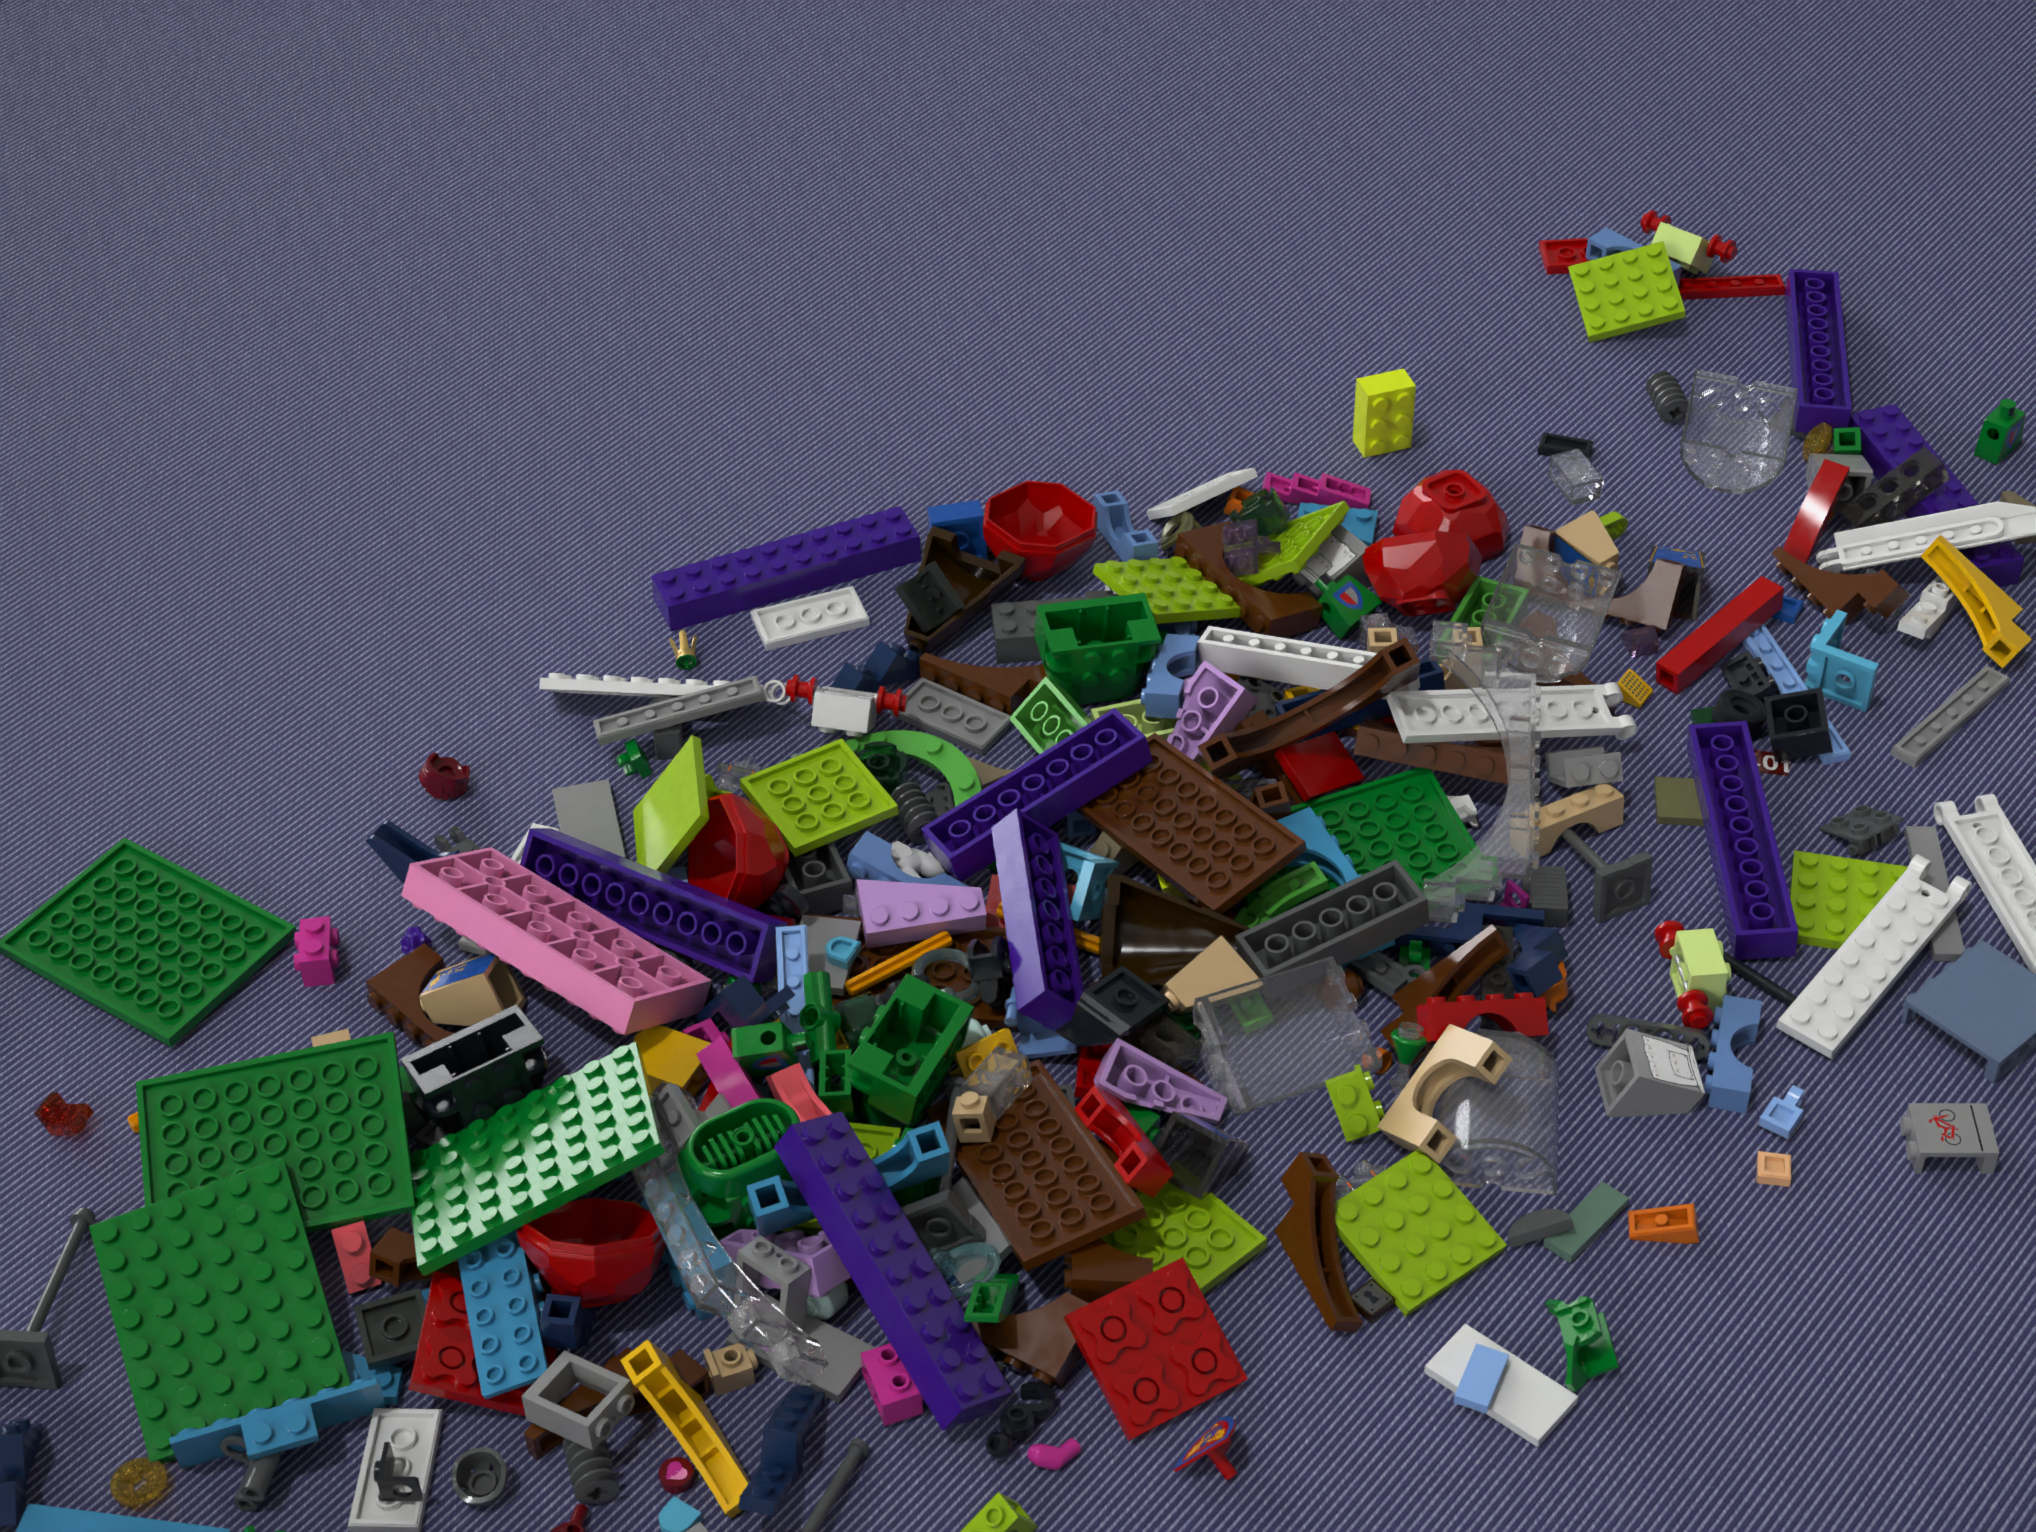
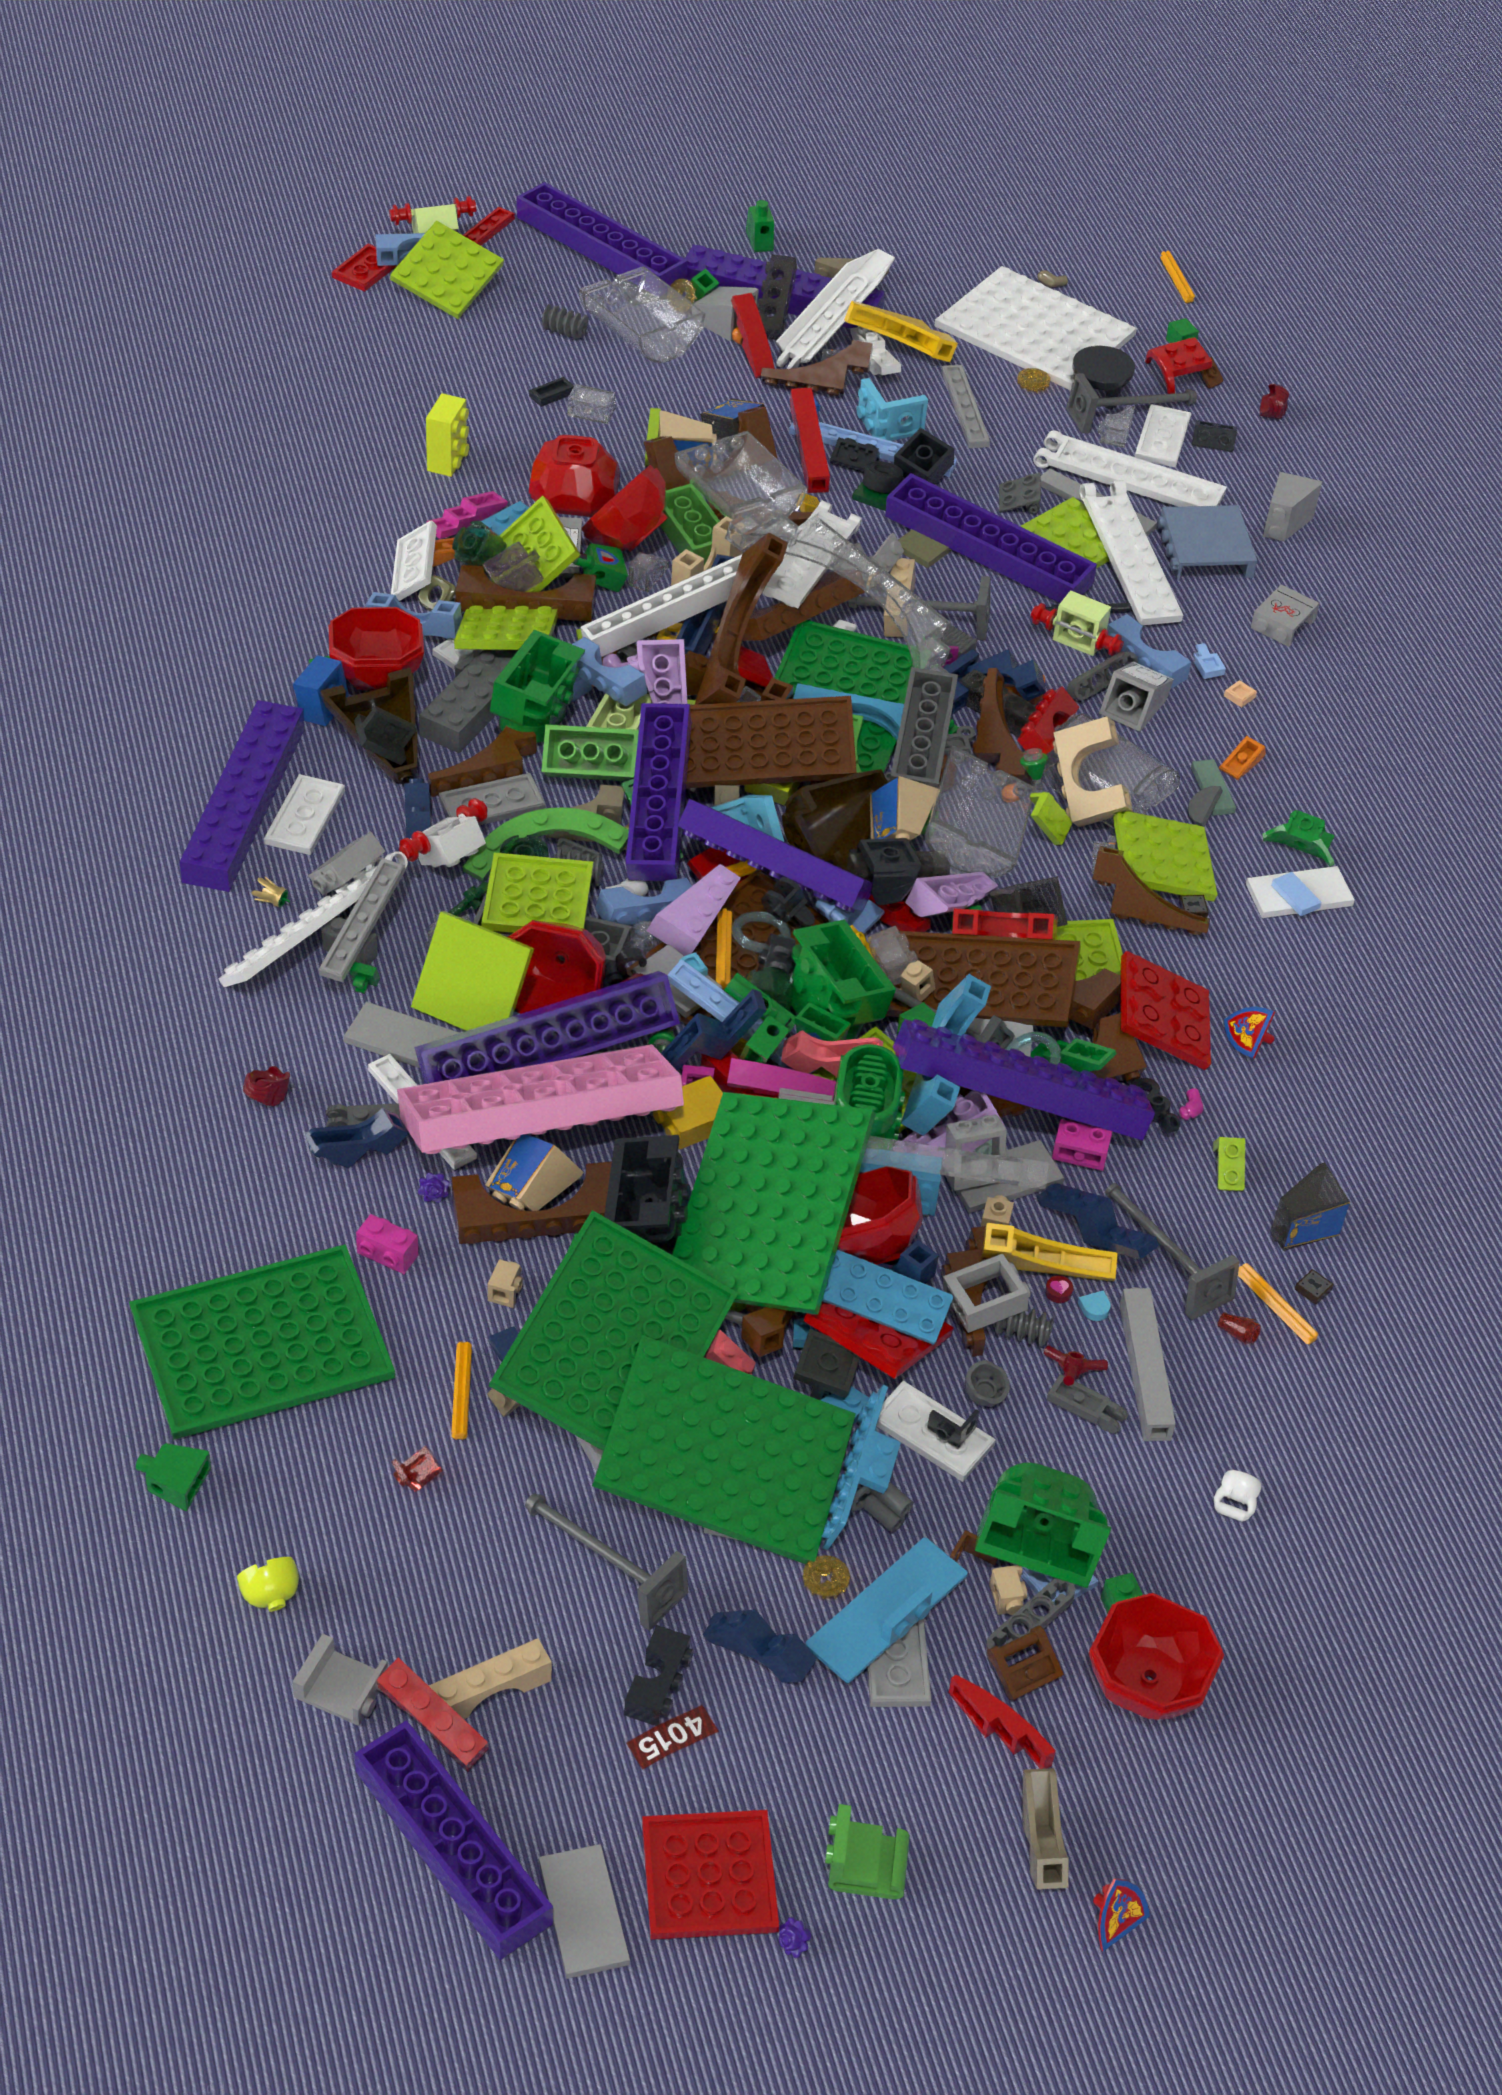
camera: 60 degrees left, 5 degrees up
(741, 664) = (346, 863): none -> light grey window

